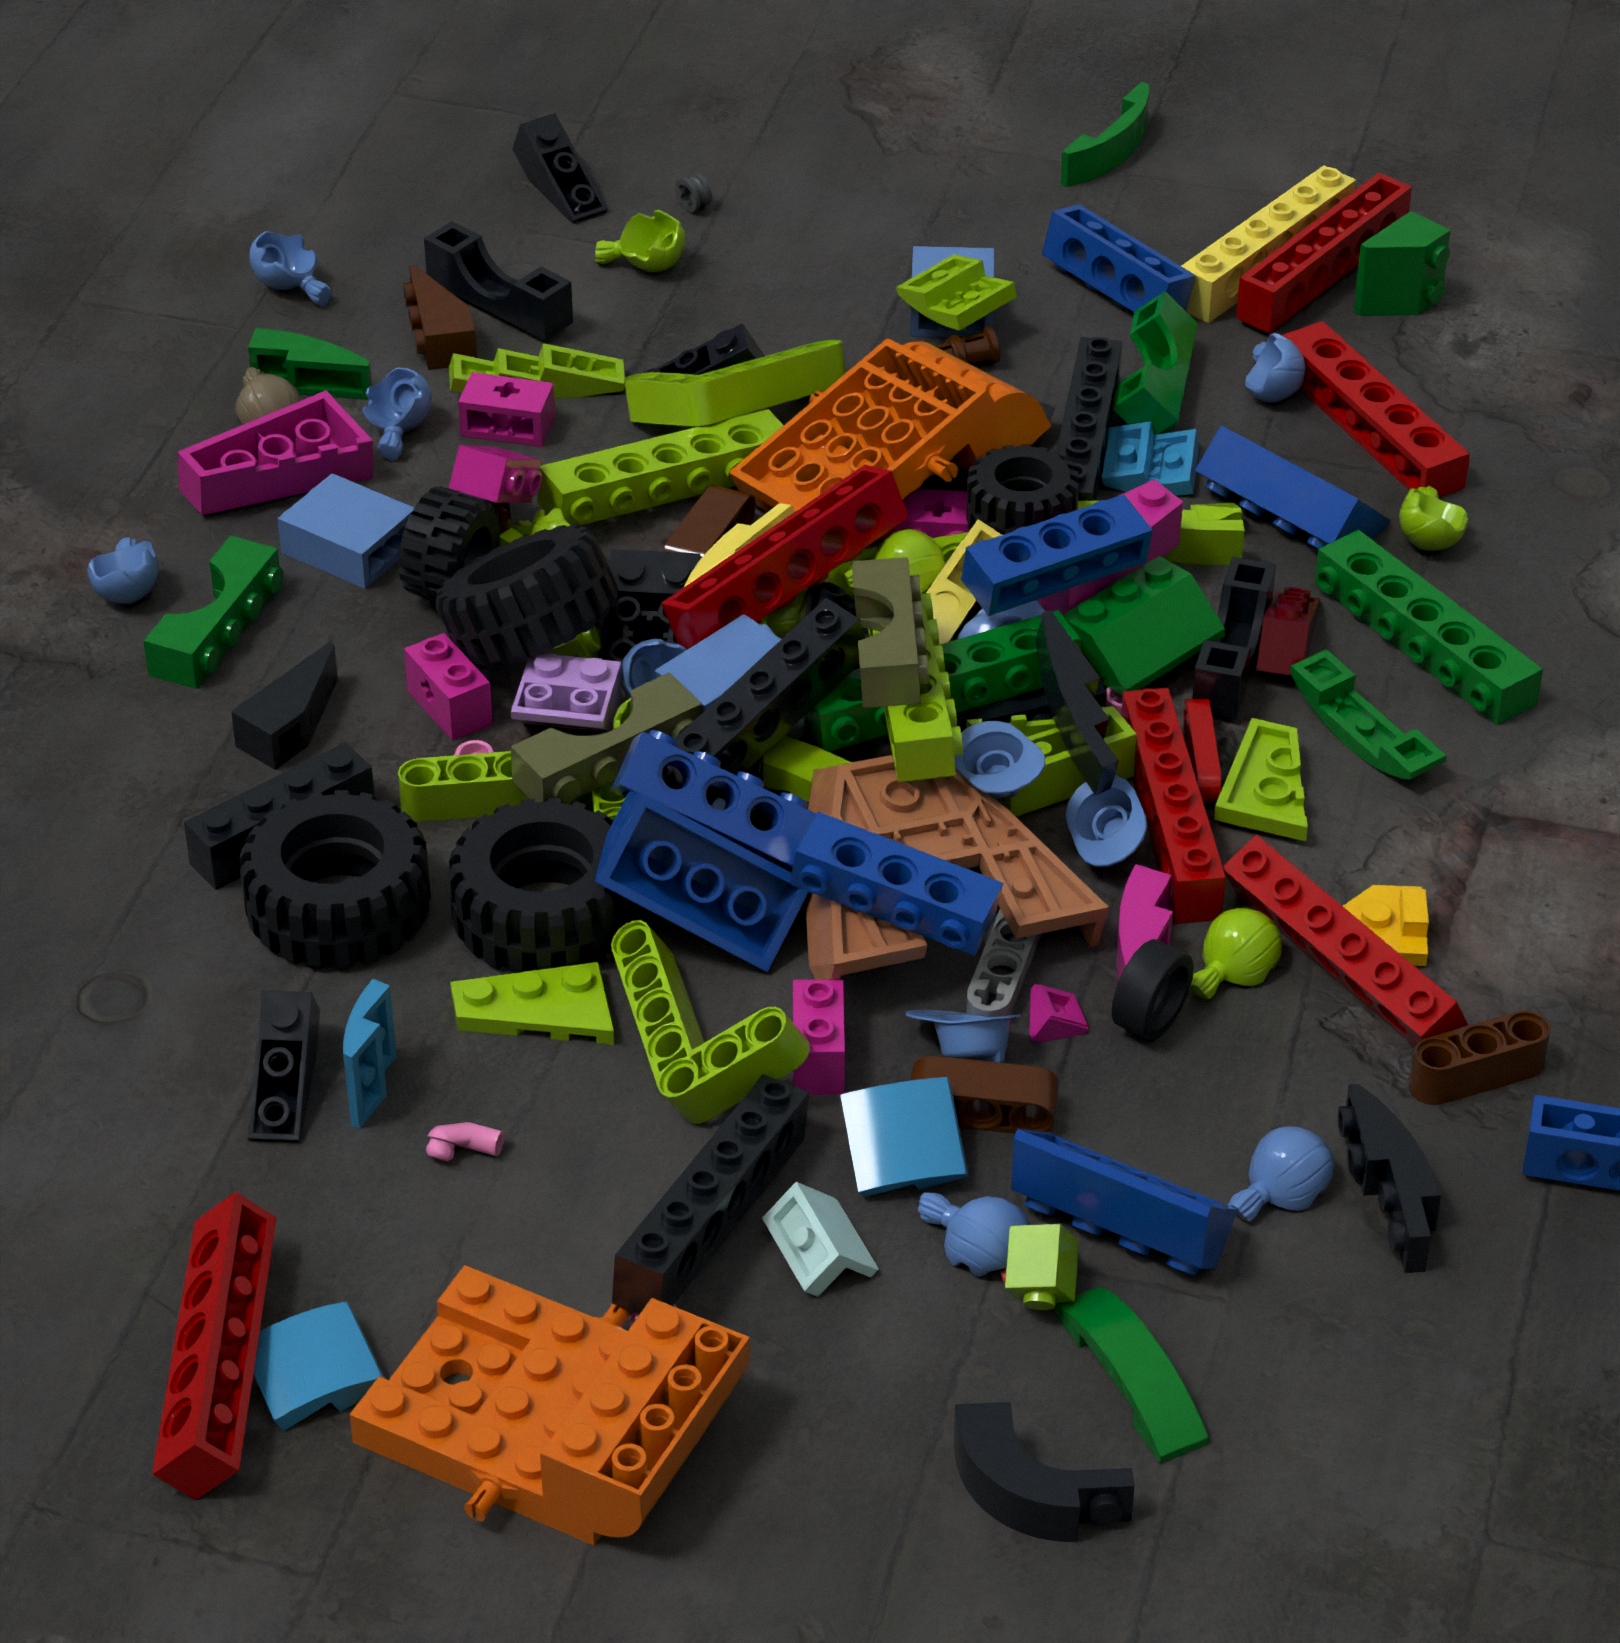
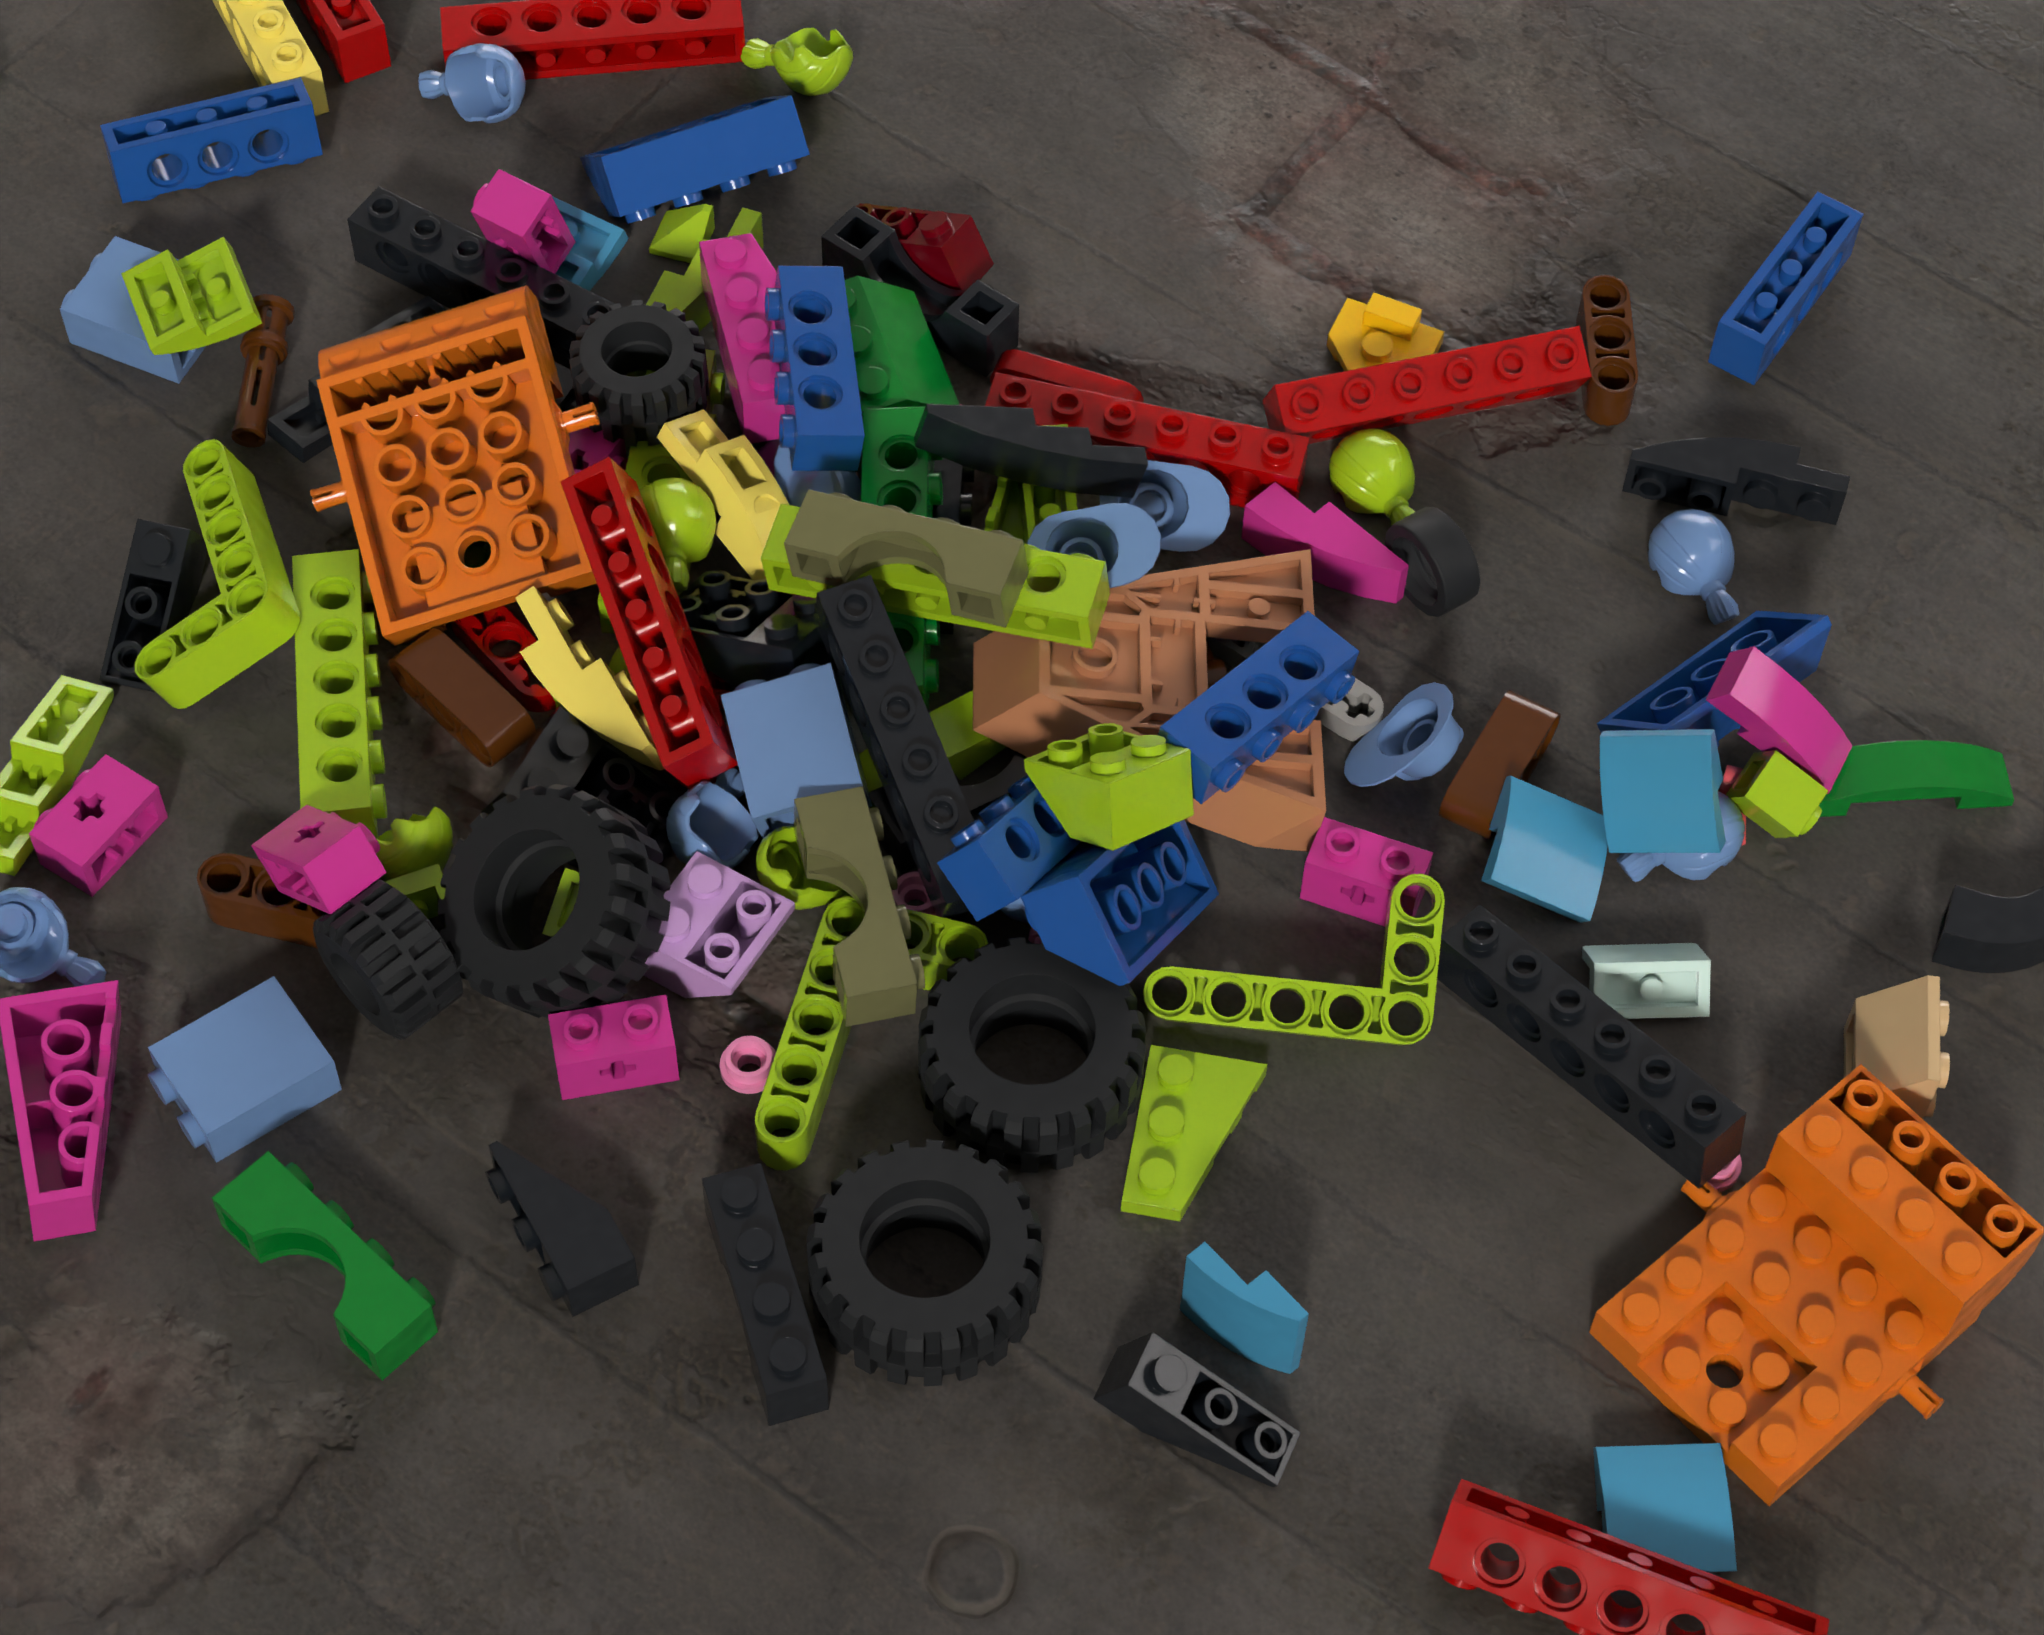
camera: 70 degrees left, 15 degrees up
(126, 573) = (190, 1344): medium blue hair -> none
(465, 1135) = (1368, 1266): bright pink arm -> none
(760, 814) = (1114, 784): none -> lime slope
(807, 1410) = (1898, 1040): none -> tan slope
(978, 1158) = (1661, 791): none -> dark azure slope
(1054, 1015) = (1395, 662): dark pink slope -> none
(1093, 1220) = (1780, 714): none -> dark pink slope
(1126, 410) = (522, 220): none -> dark pink brick
(1165, 341) = (399, 165): green arch -> none
(1265, 783) = (1114, 344): lime wing -> none
(1358, 724) = (1091, 248): green slope -> none
(1428, 627) = (967, 134): green brick -> none

